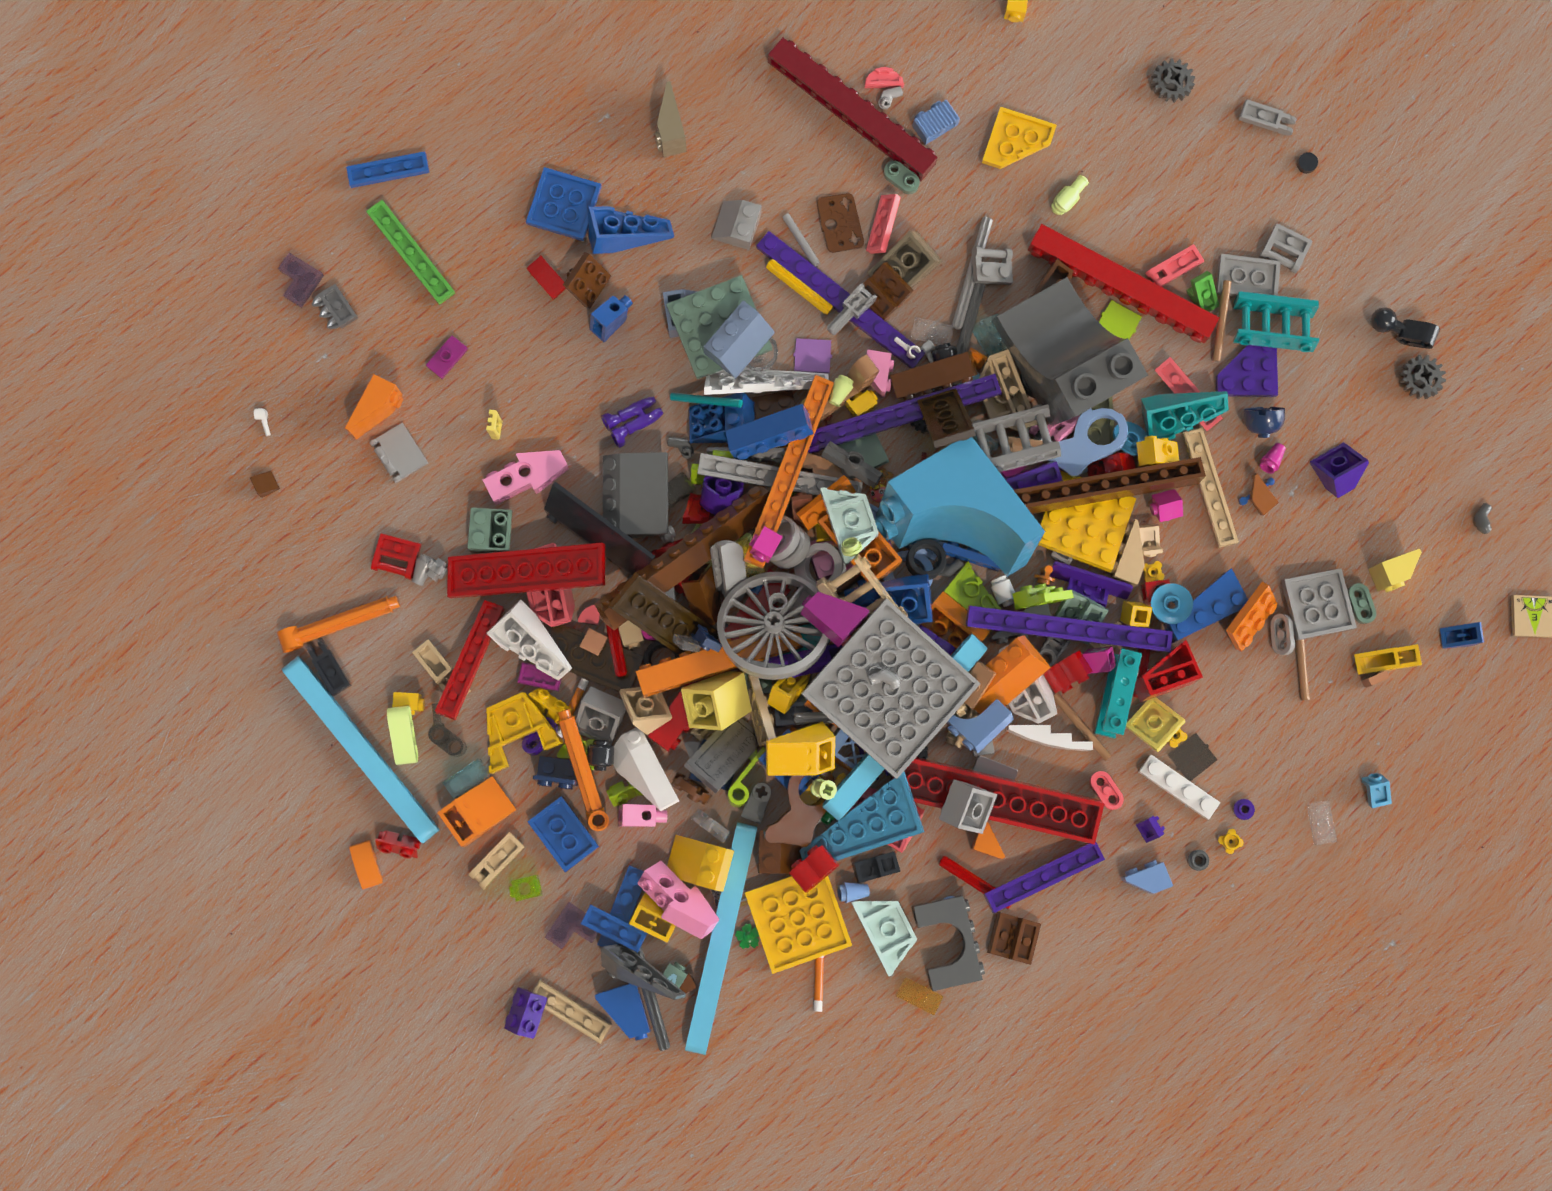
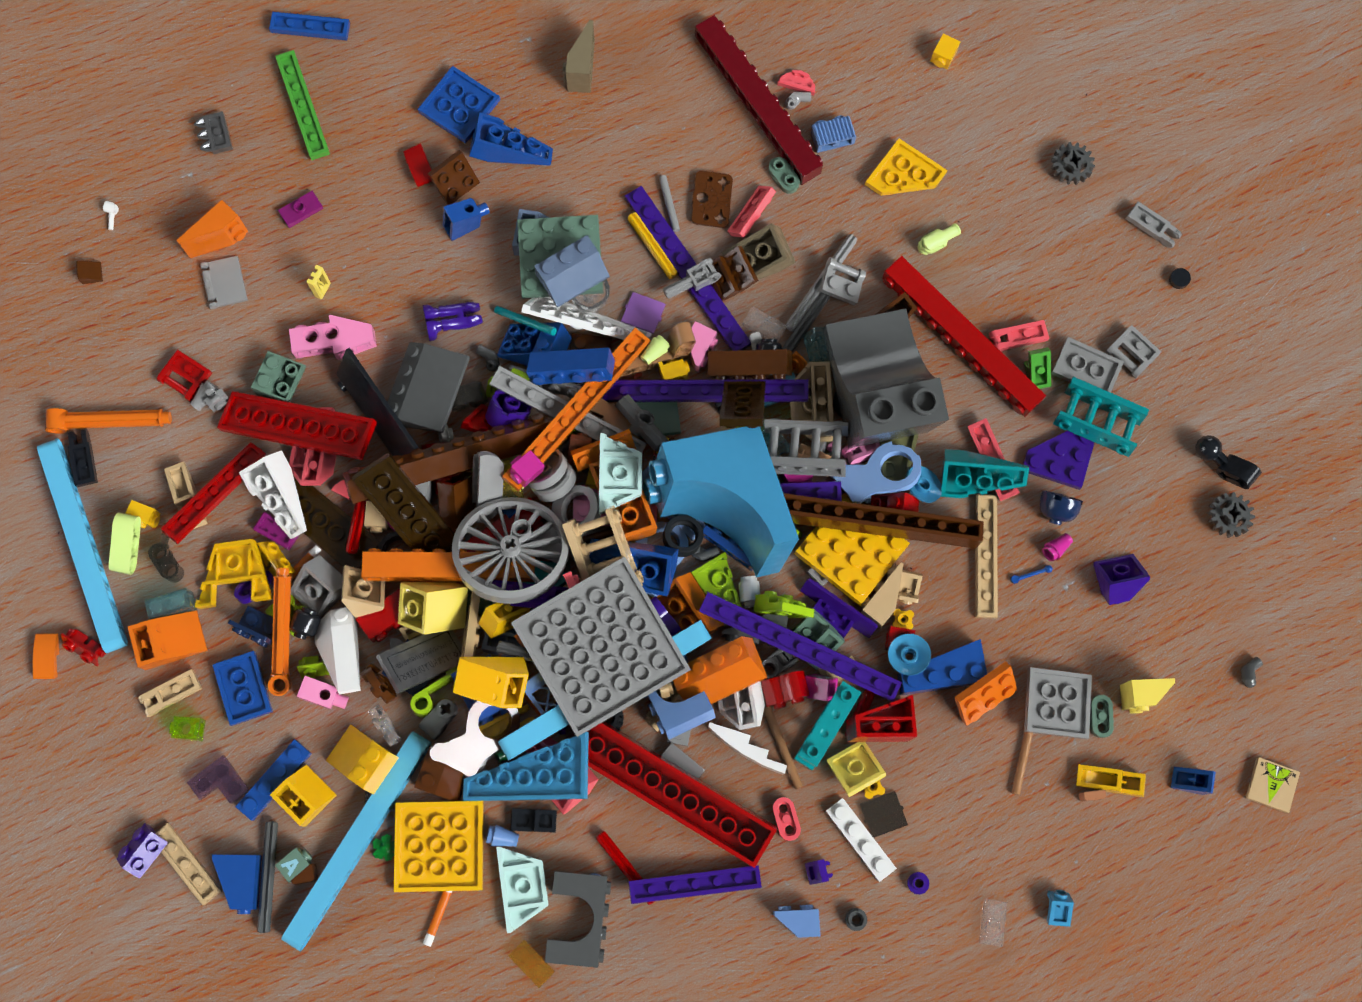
camera: 20 degrees right, 5 degrees down
(304, 279) = (196, 100): plate -> none
(593, 642) = (337, 513): nougat tile -> none
(614, 928) = (254, 795): blue plate -> none
(630, 967) = (256, 838): dark grey wedge -> none
(681, 905) = (327, 794): bright pink brick -> none
(686, 643) = (421, 540): clear tile -> none
(706, 640) = (440, 543): dark blue plate -> none
(737, 223) = (615, 170): light grey slope -> none
(813, 868) = (468, 800): red brick -> none
(823, 788) = (507, 728): yellowish green bush -> none
(833, 616) = (567, 557): magenta slope -> none
(851, 547) = (608, 497): yellowish green plate -> none
(886, 676) = (598, 632): light grey arm -> none
(908, 348) = (733, 330): white hand -> none
(967, 807) = (638, 788): light grey slope -> none
(984, 676) = (697, 664): medium nougat plate -> none
(987, 843) = (649, 831): orange slope -> none
(1014, 938) = (645, 936): reddish brown slope -> none
(1045, 575) = (794, 591): orange plate -> none
(1119, 320) = (950, 370): lime piece -> none
(1136, 614) = (872, 654): yellow brick -> none
(1156, 451) = (942, 502): yellow brick -> none
(1167, 505) = (936, 559): dark pink brick -> none
(1222, 320) = (1048, 400): medium nougat bar -> none
(1230, 847) = (889, 907): yellow plate -> none
(1261, 496) = (1034, 579): dark orange tile -> none
(1281, 635) = (1011, 721): light grey plate -> none

